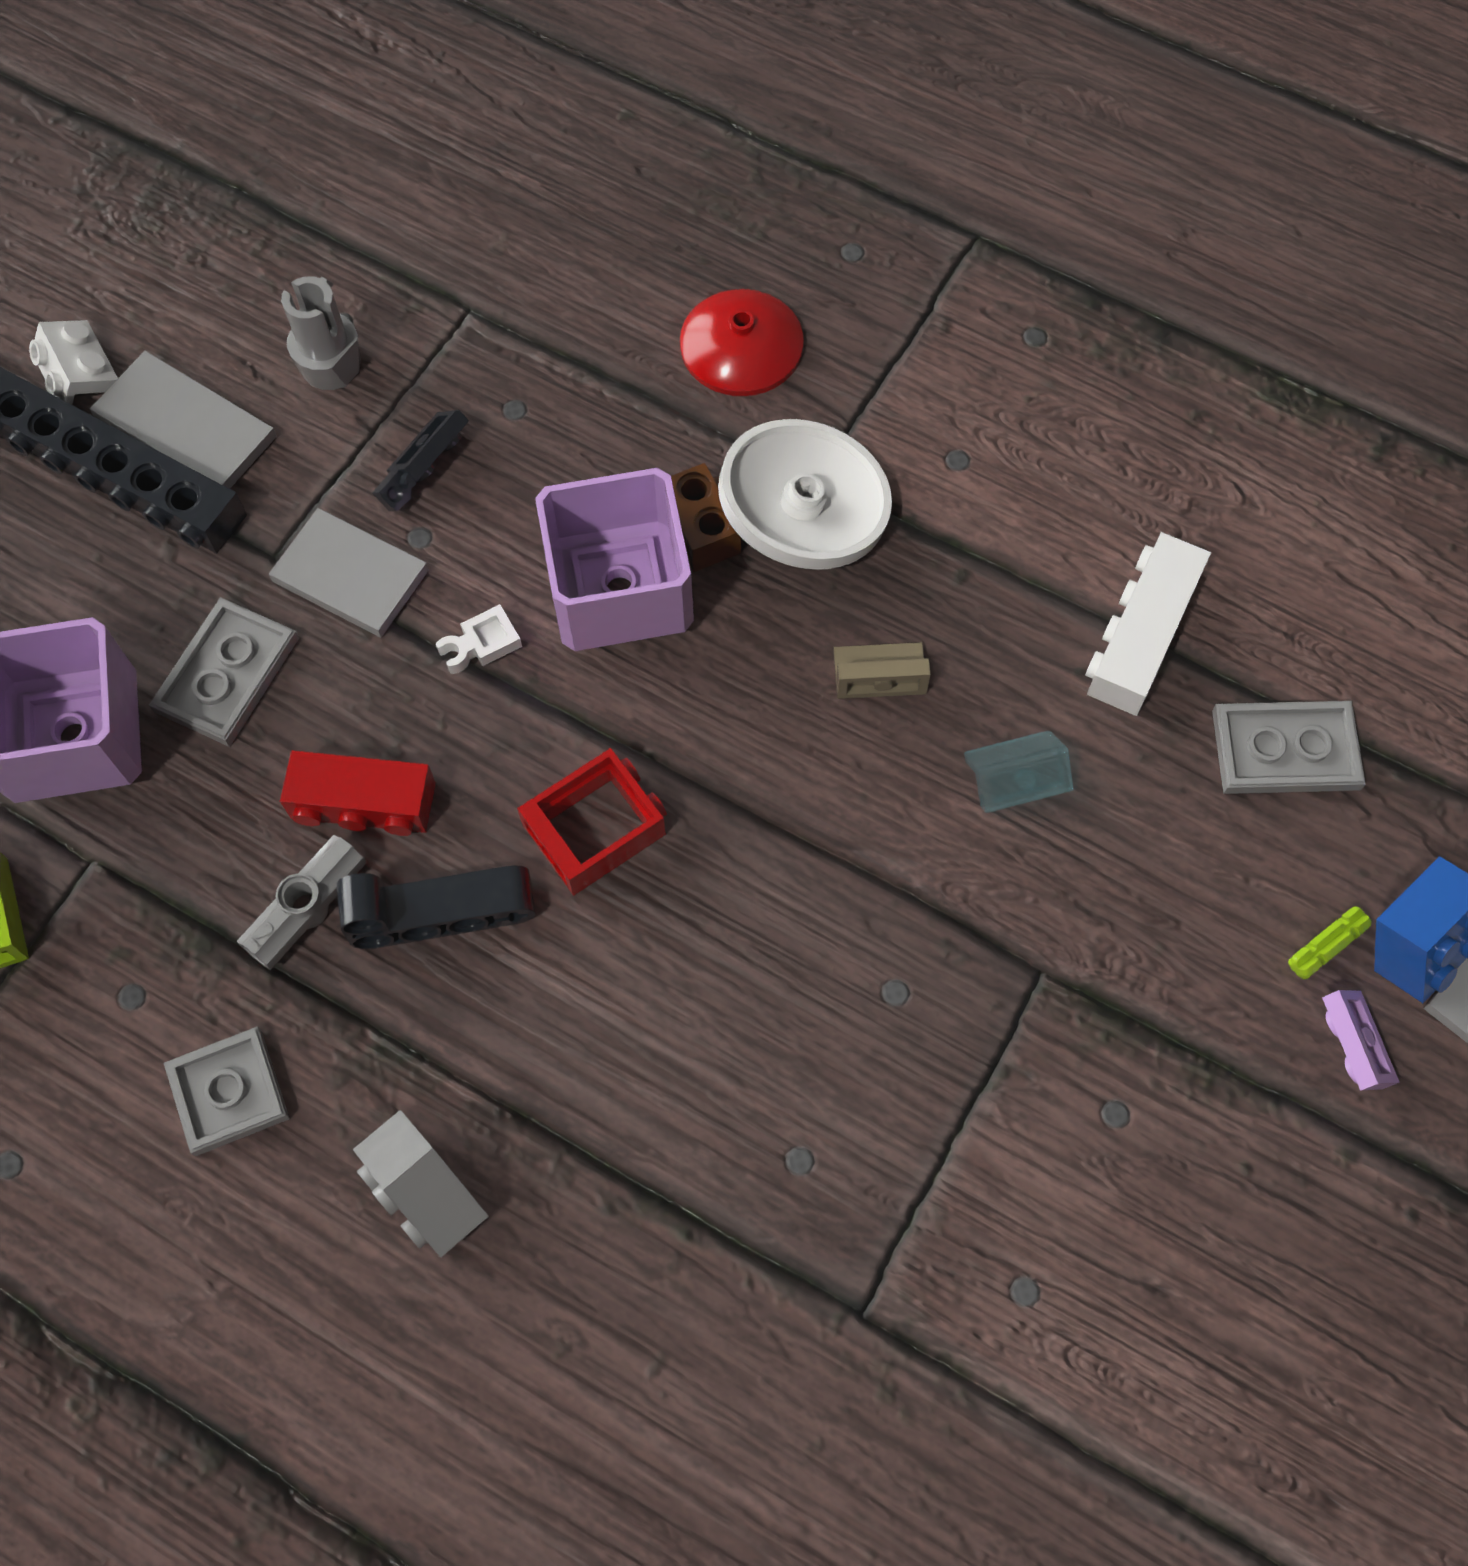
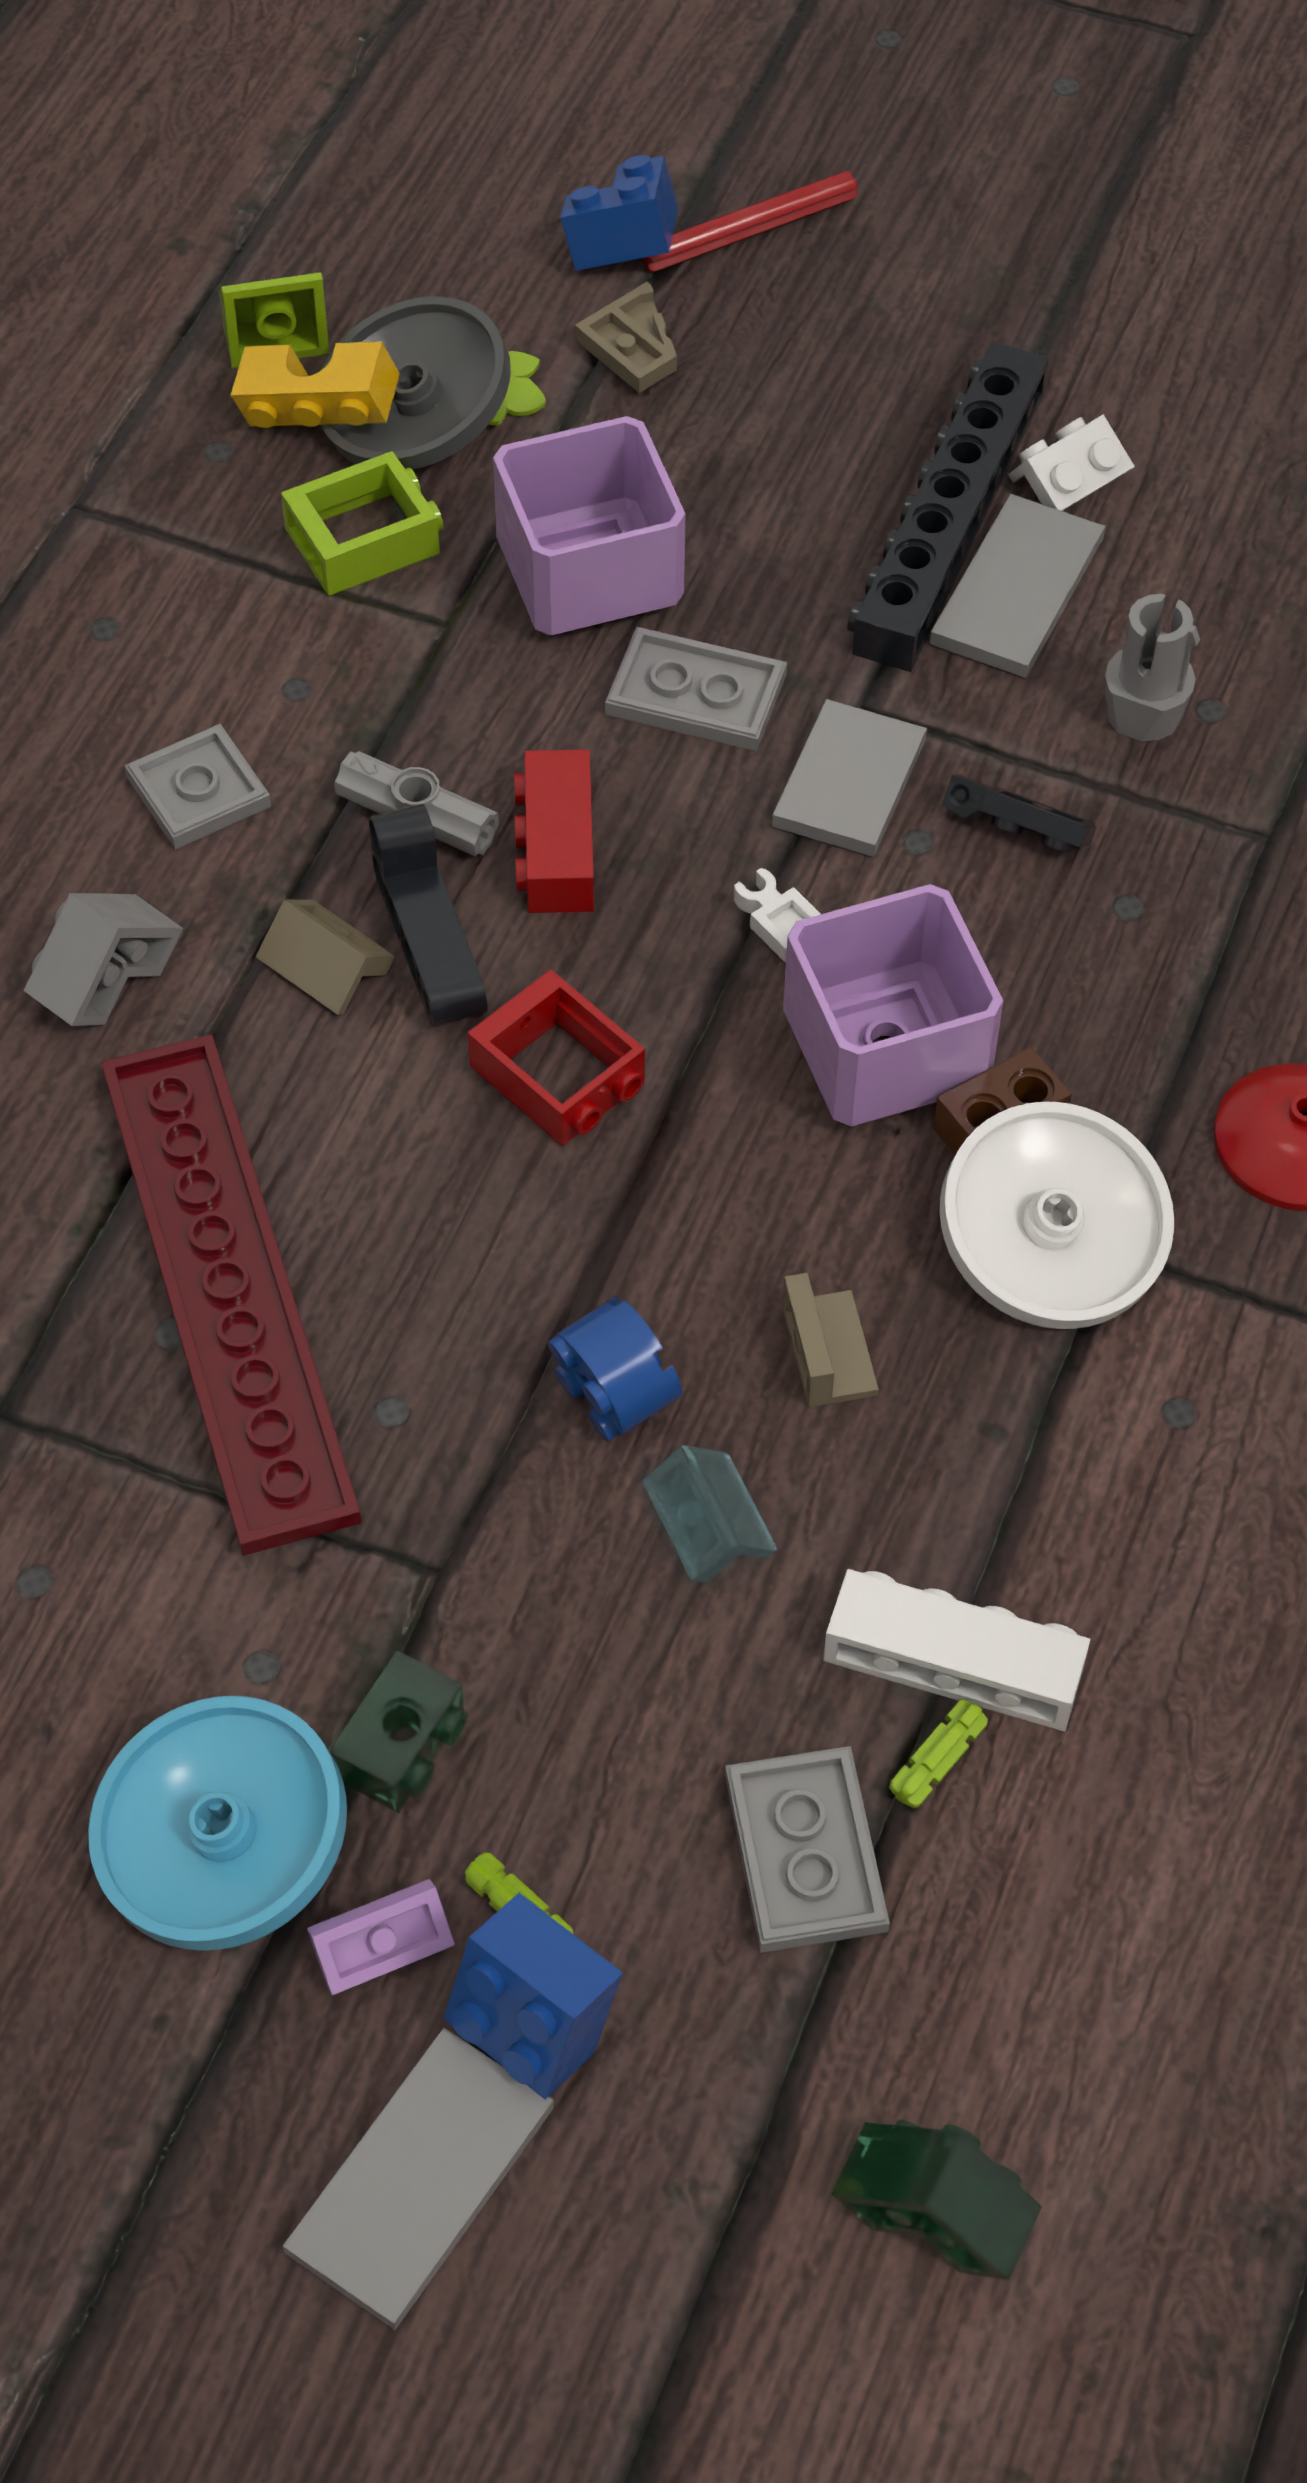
camera: 80 degrees right, 10 degrees down
(443, 997) = (321, 953): none -> dark tan panel
(768, 1107) = (230, 1297): none -> dark red plate
(904, 808) = (615, 1367): none -> blue brick
(1206, 1035) = (402, 1697): none -> clear green brick
(1222, 650) = (938, 1753): none -> lime axle
(1276, 1149) = (217, 1823): none -> medium azure dish

